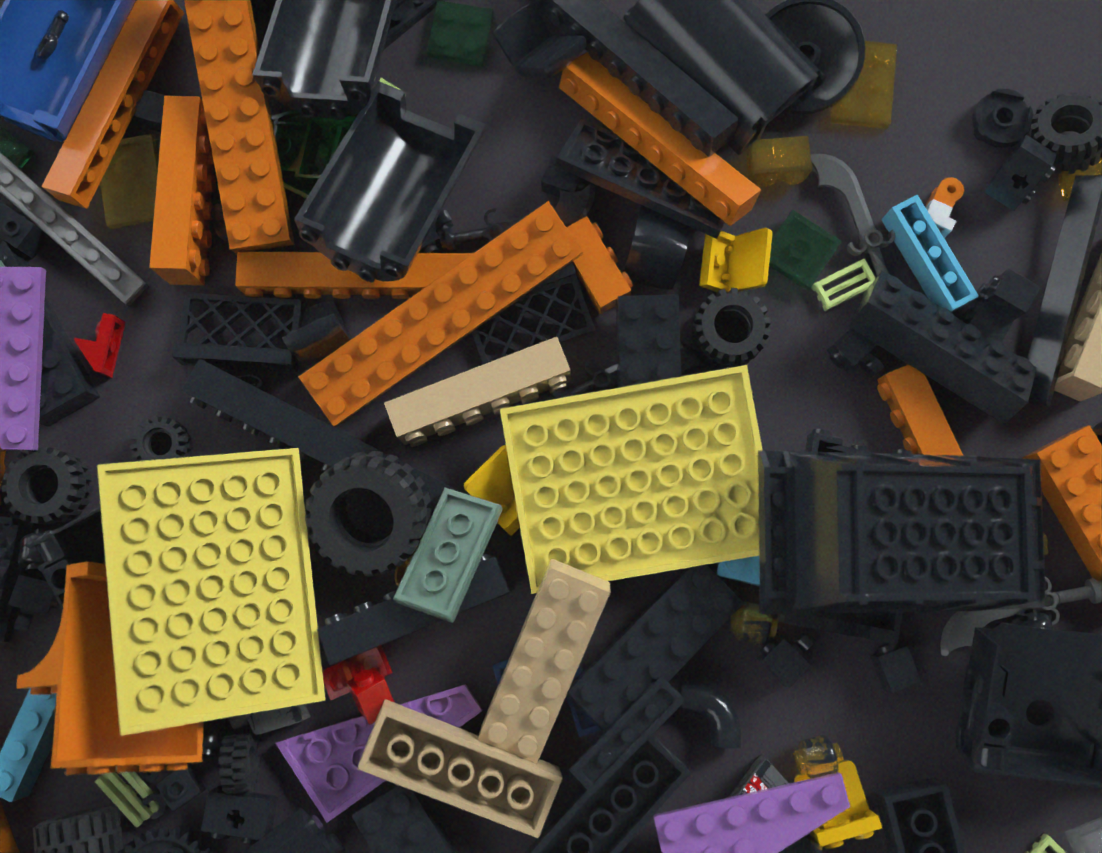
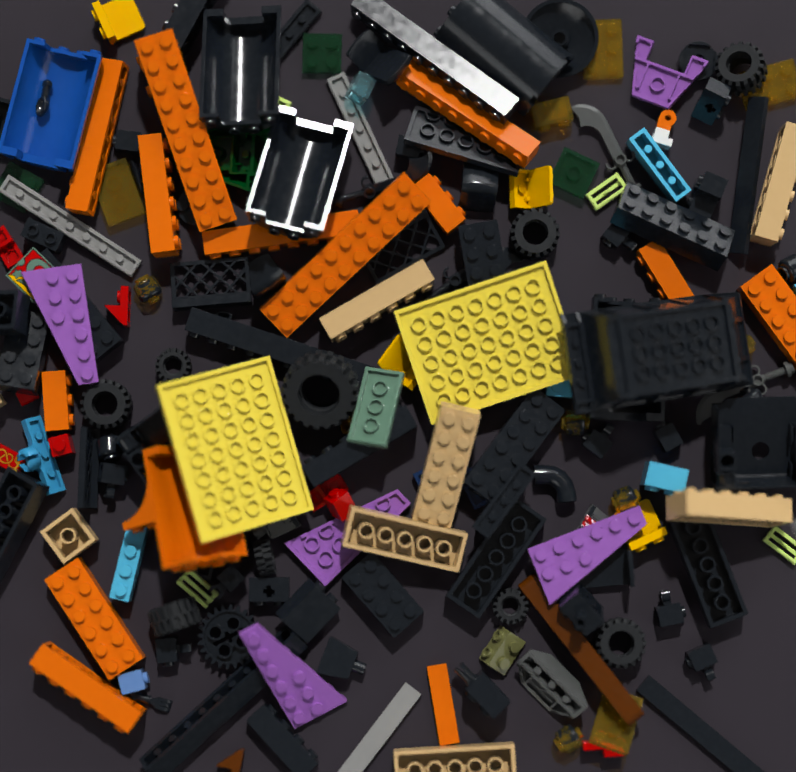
camera: 10 degrees left, 5 degrees up
(145, 326) = (147, 289): none -> head
(496, 142) = (361, 131): none -> light grey tile
(505, 84) = (360, 88): none -> clear light blue brick
(880, 732) = (663, 477): none -> medium azure brick
(945, 141) = (658, 83): none -> medium lavender wing
(989, 804) = (728, 508): none -> tan brick

